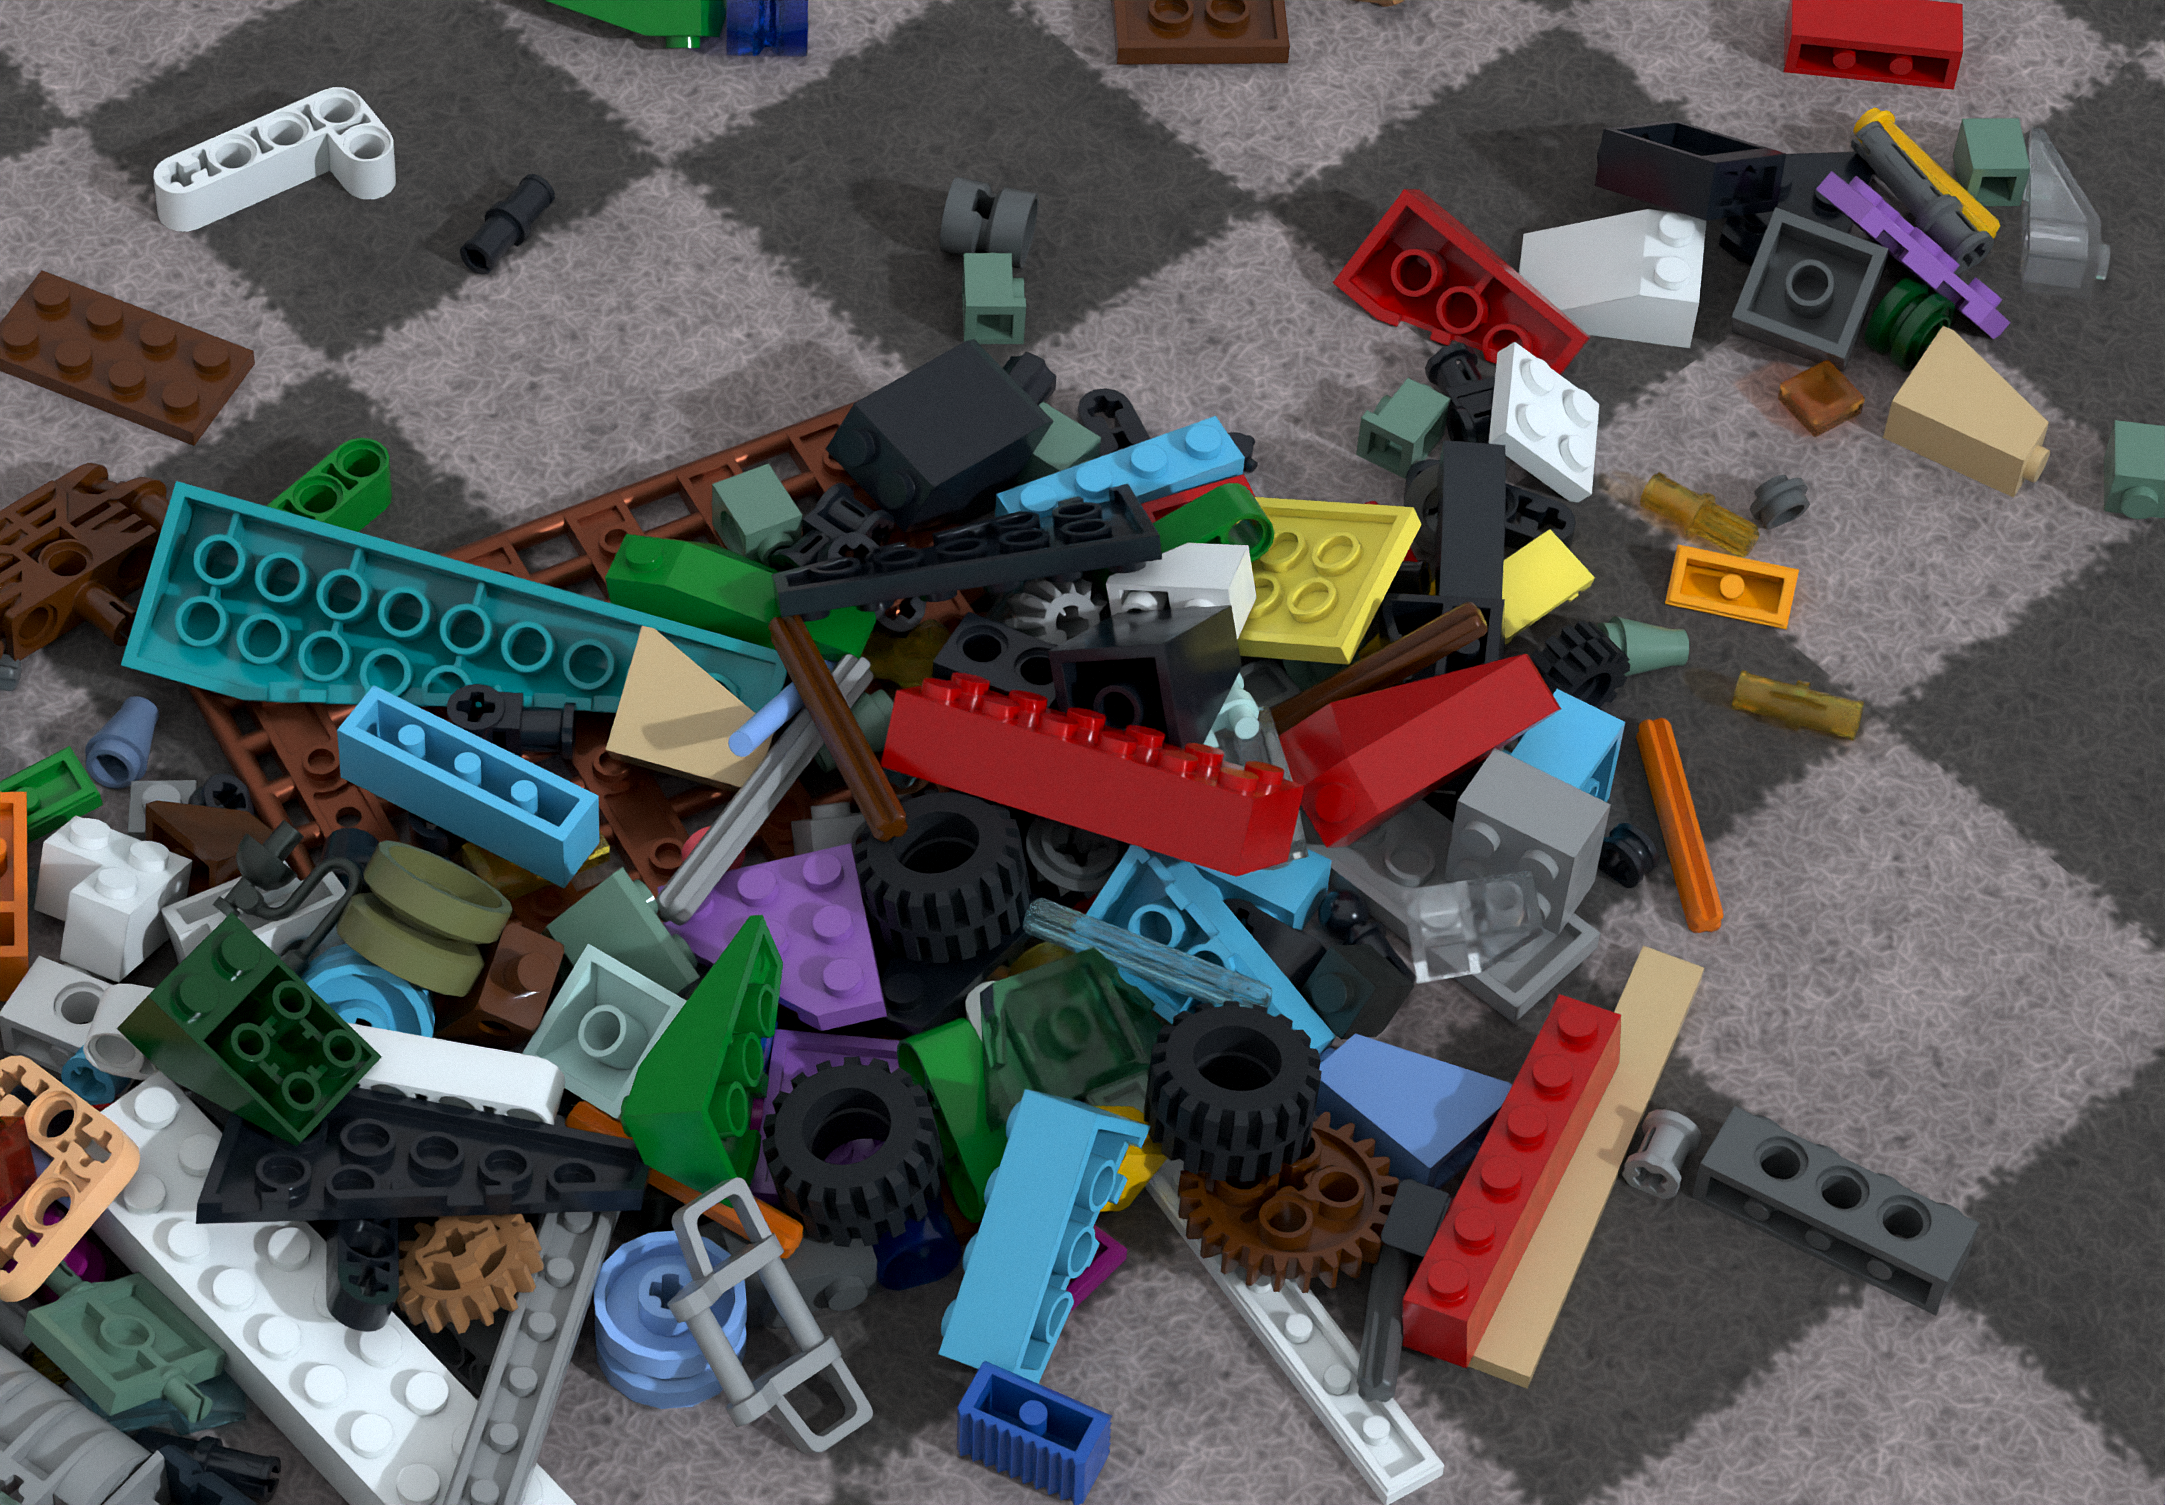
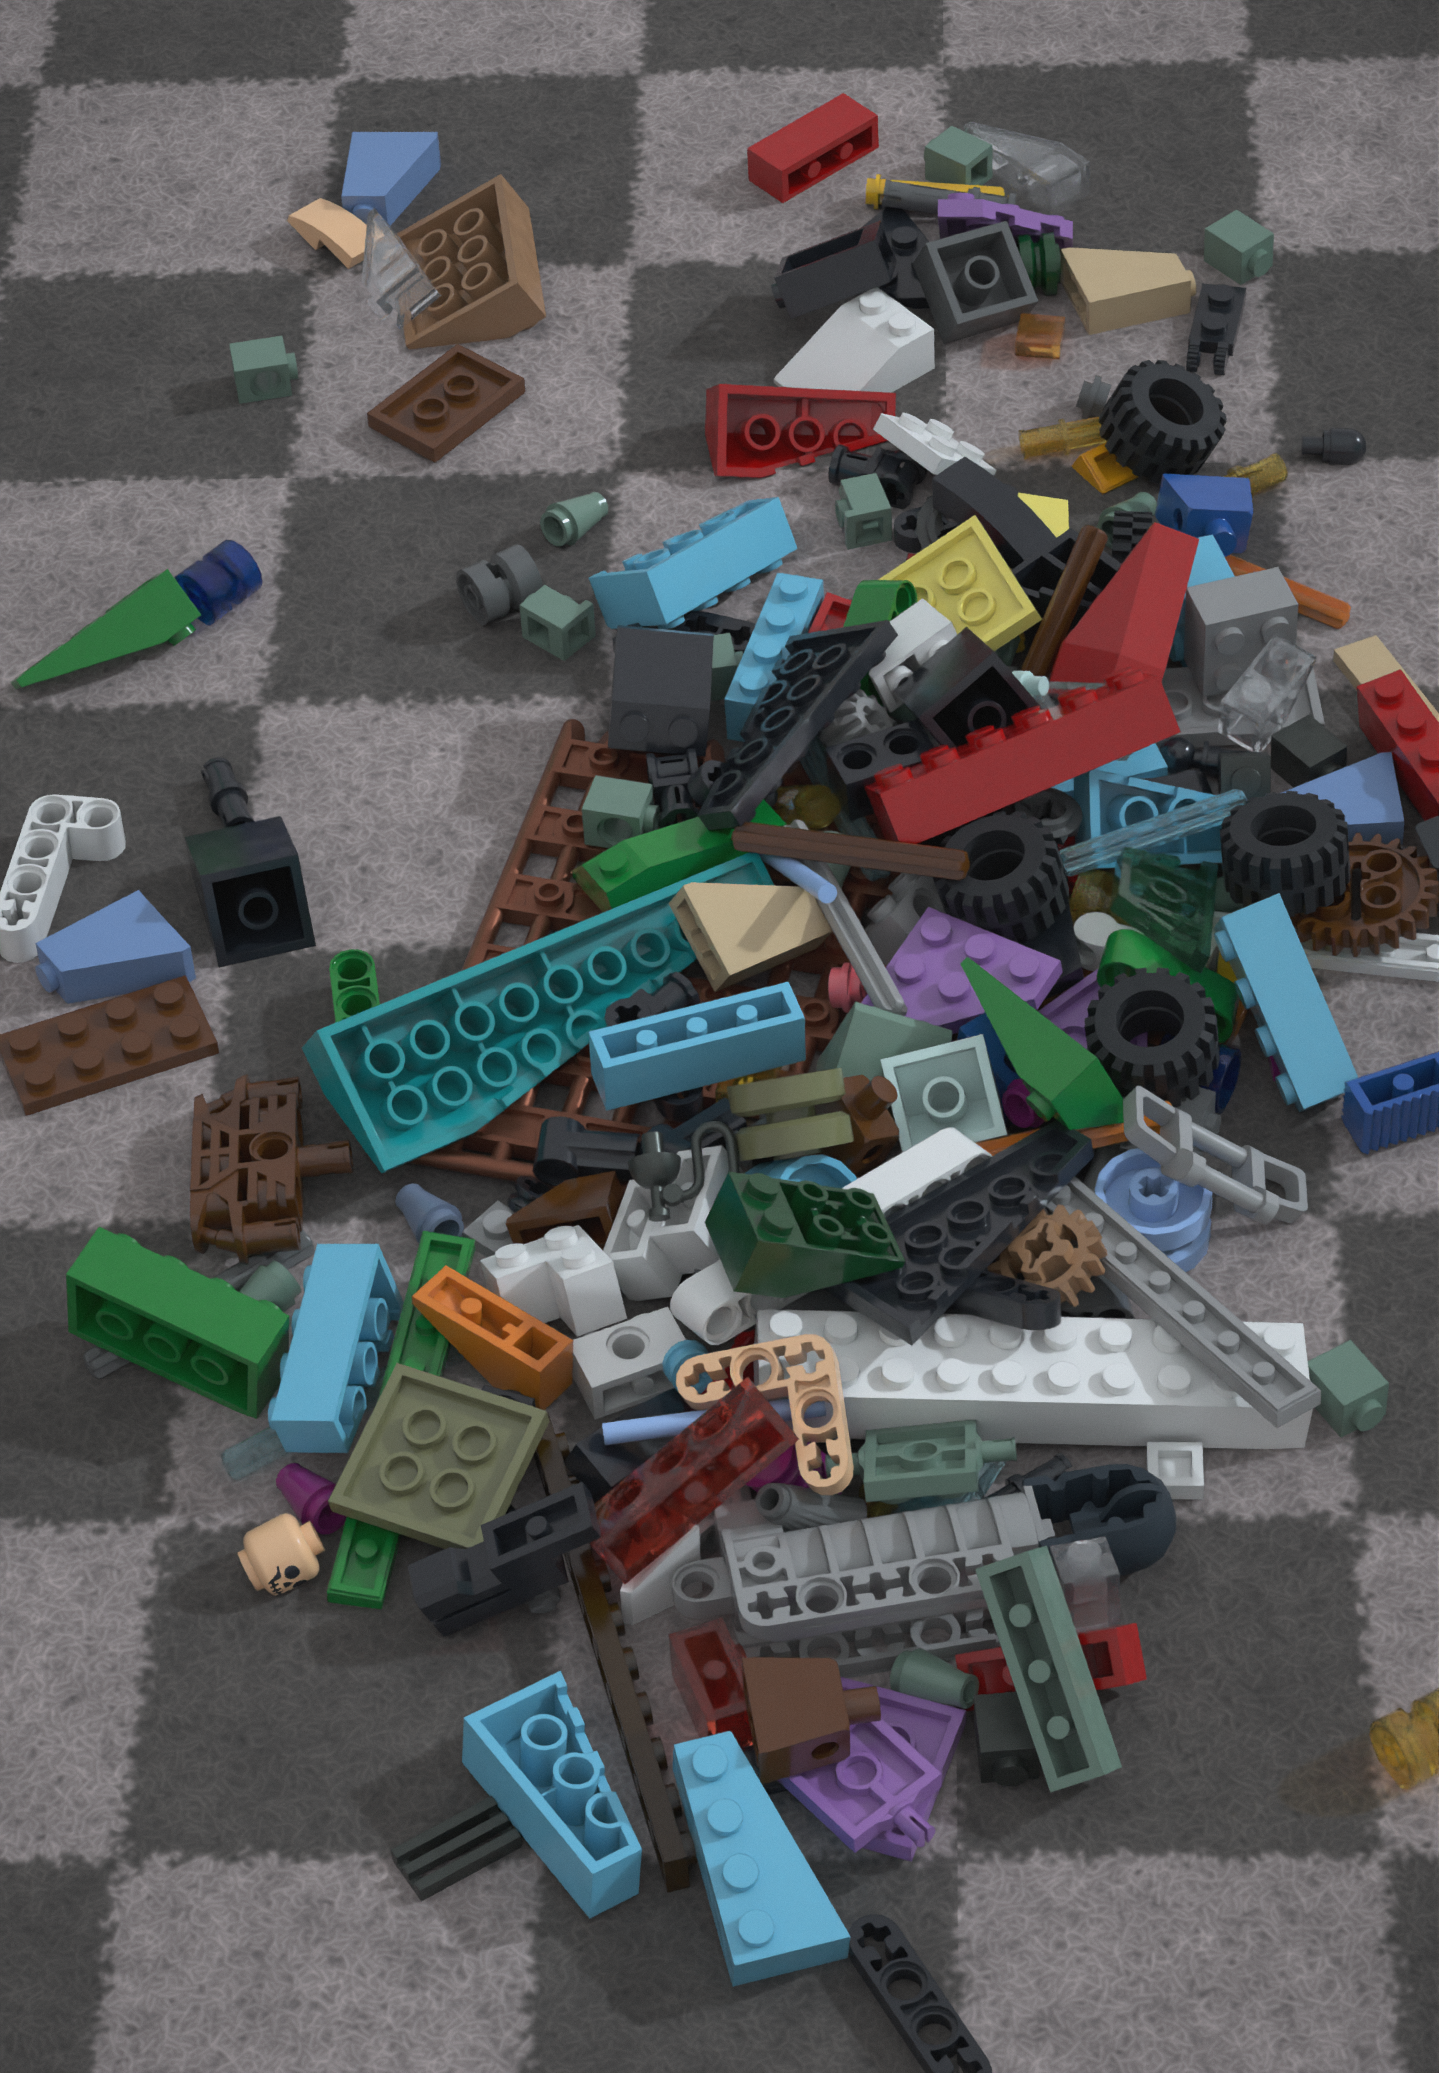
camera: 40 degrees left, 5 degrees down
(224, 278) = (113, 953): none -> medium blue slope
(284, 788) = (571, 1151): none -> black piece
(397, 317) = (251, 891): none -> black slope
(1150, 215) = (572, 518): none -> sand green cone
(1173, 352) = (696, 566): none -> medium azure wedge
(1458, 1020) = (1306, 752): none -> pearl dark grey brick
(1706, 707) = (1207, 507): none -> blue torso
(1818, 547) = (1162, 421): none -> black tyre
(1947, 748) = (1336, 445): none -> black cylinder
(2008, 531) = (1215, 325): none -> black hinge

